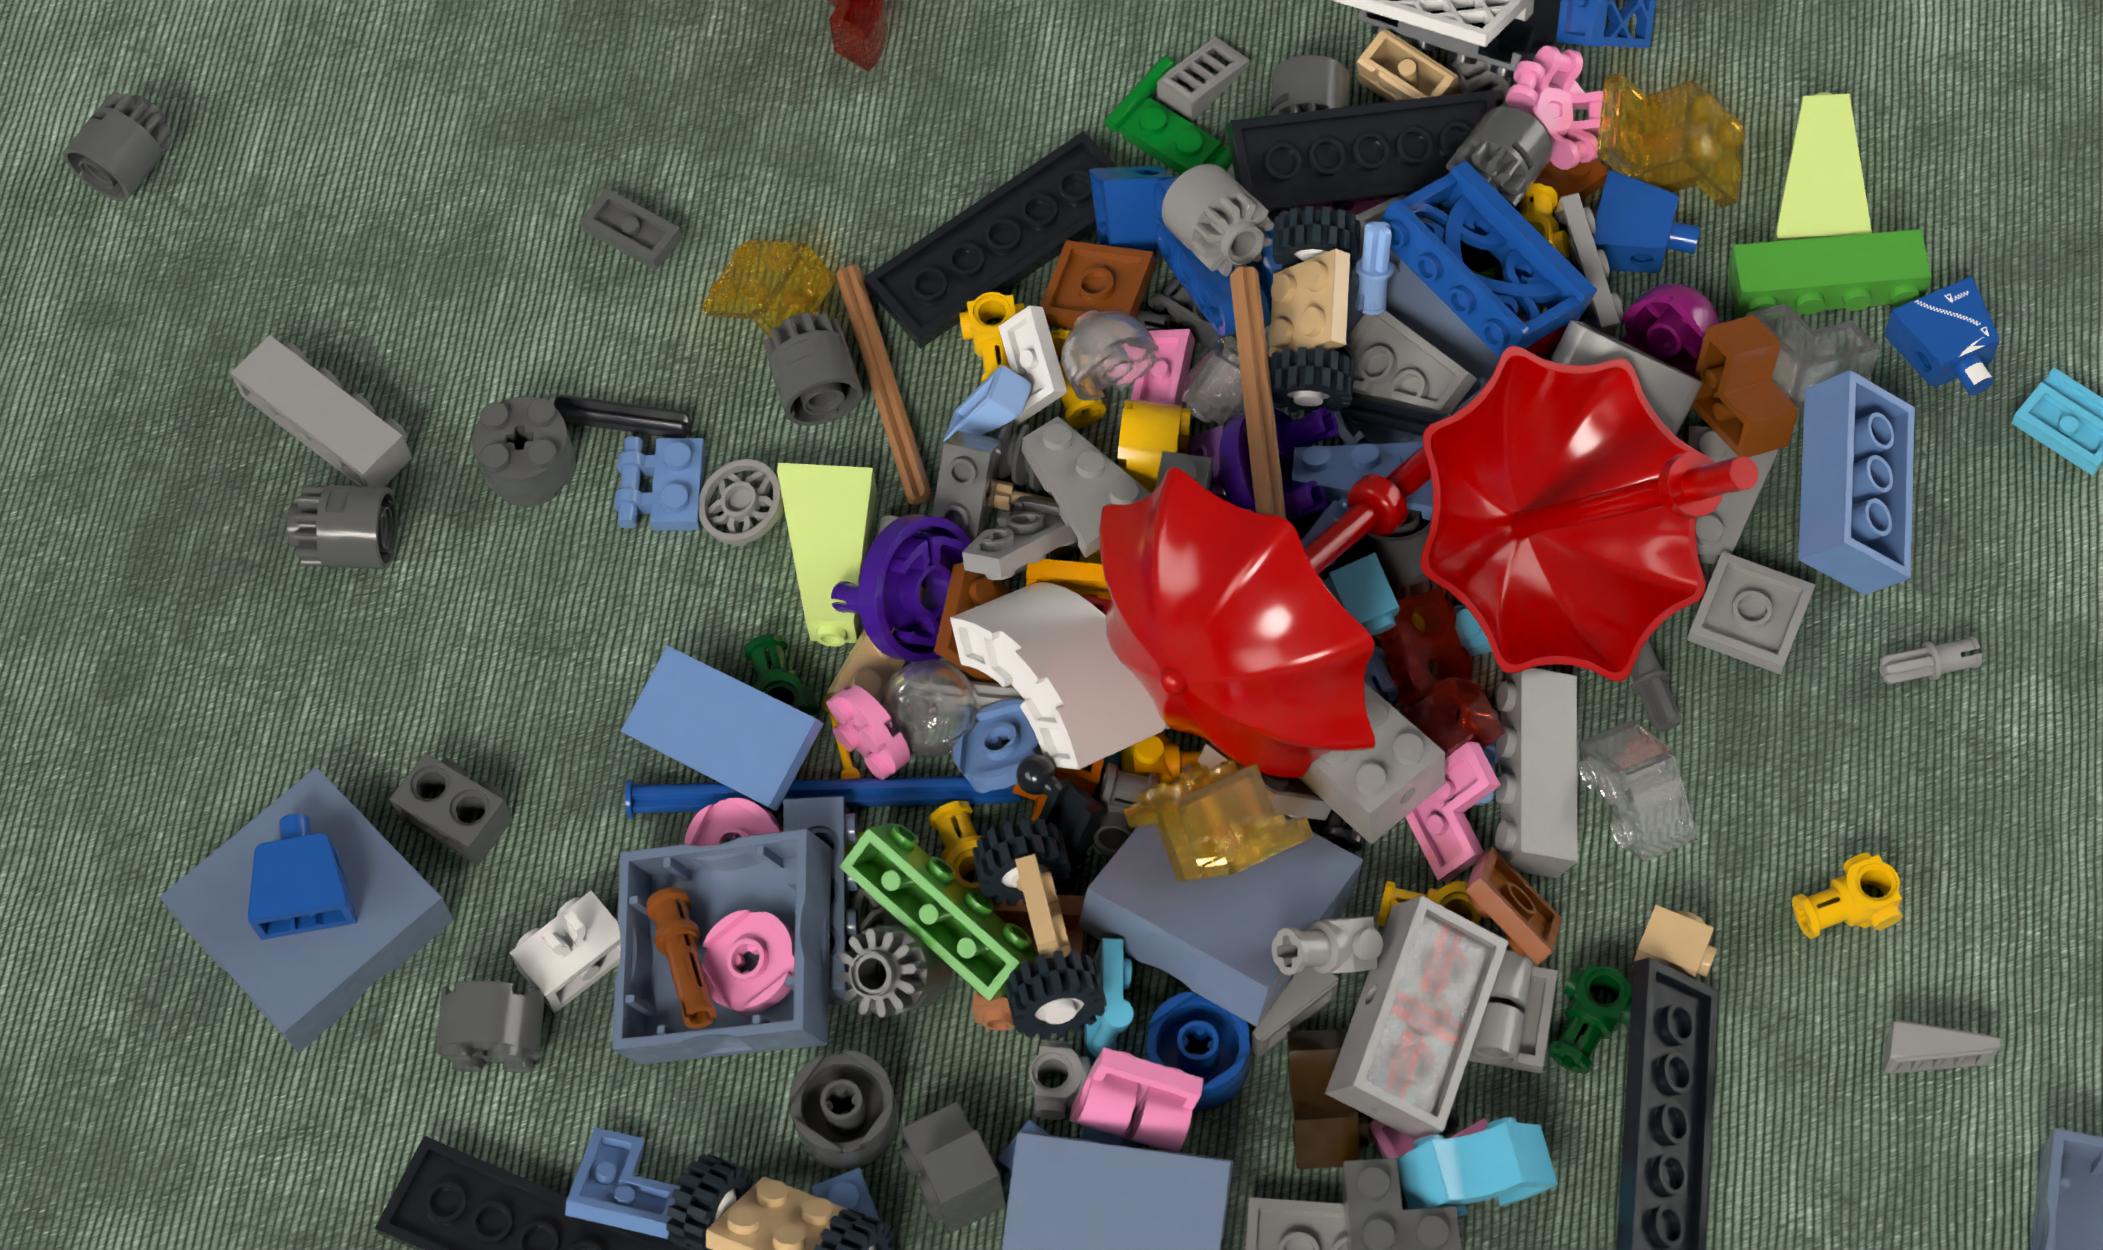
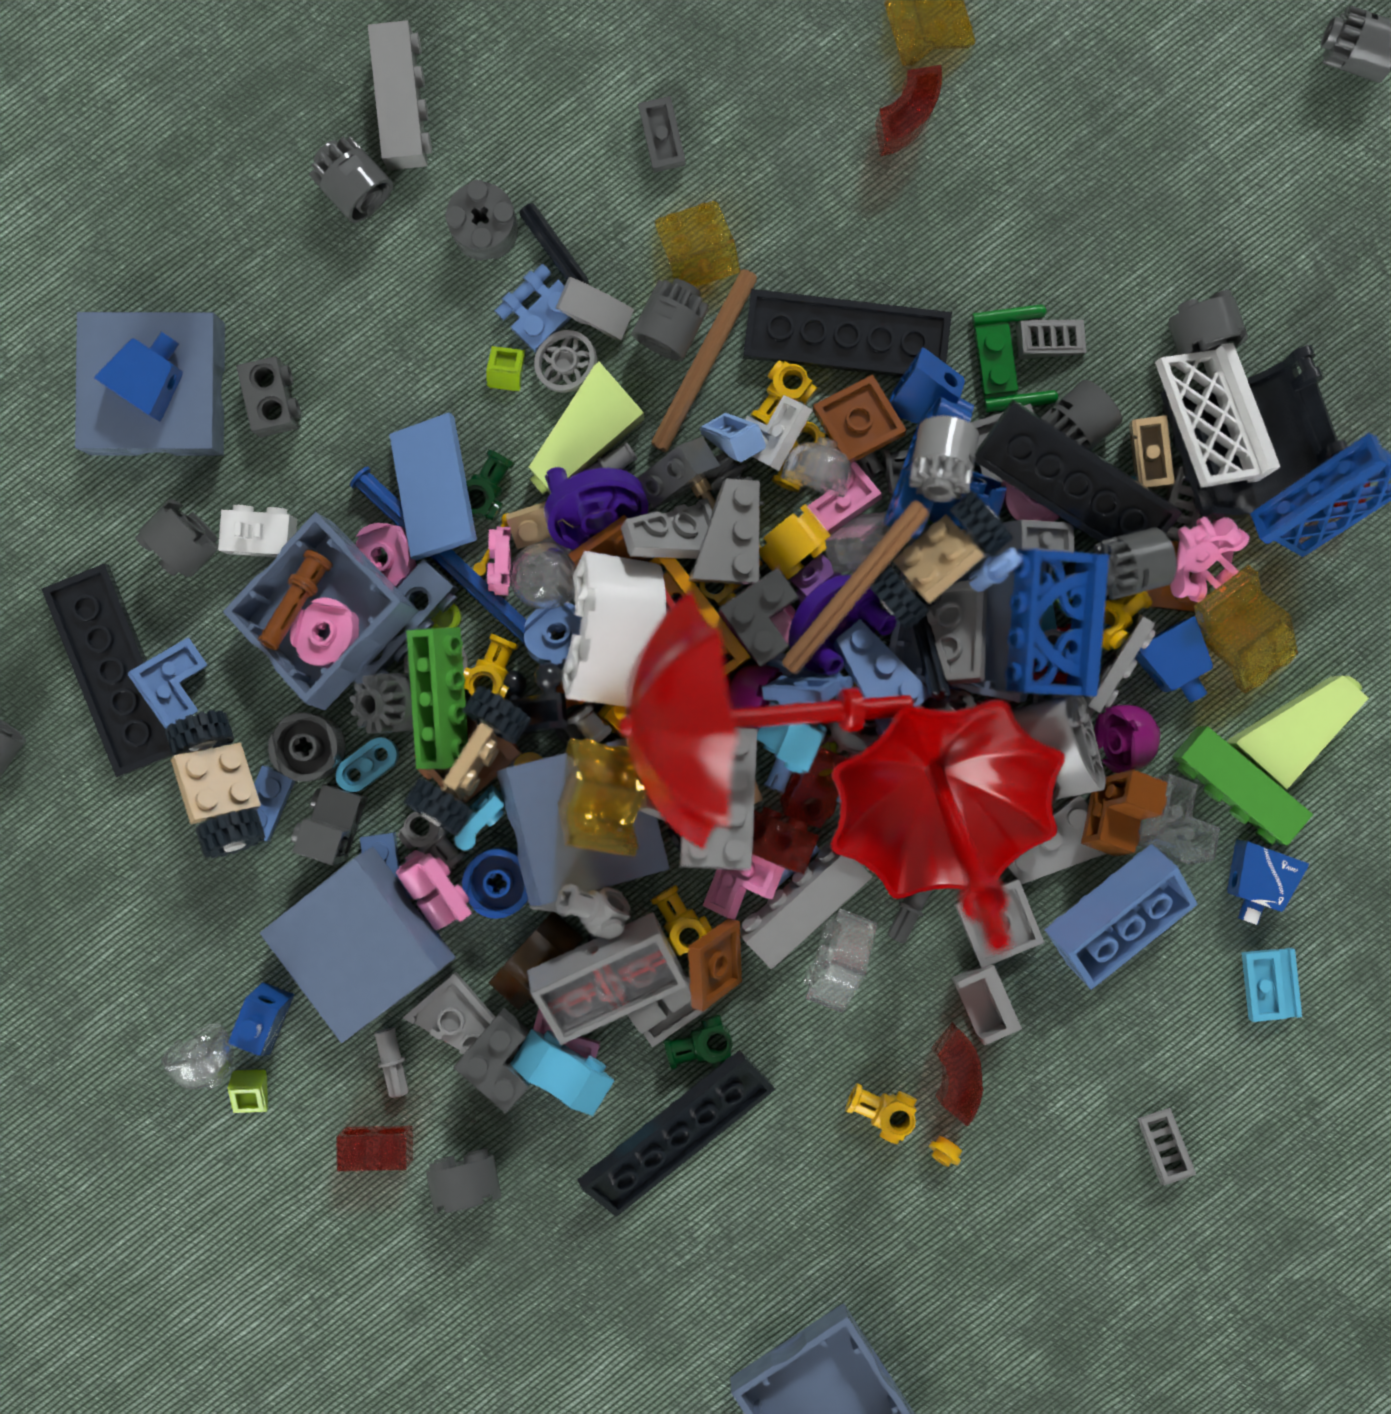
camera: 35 degrees right, 25 degrees up
(683, 568) = (505, 368): none -> lime slope
(717, 427) = (594, 308): none -> light grey slope
(926, 1077) = (367, 763): none -> medium azure plate
(1678, 942) = (777, 1051): tan brick -> none
(1827, 696) = (986, 1003): none -> light grey panel
(1881, 781) = (961, 1076): none -> clear red brick
(1929, 661) = (1057, 1034): light grey axle -> none
(1929, 1047) = (834, 1210): light grey slope -> none
(1958, 878) = (945, 1151): none -> yellow plate

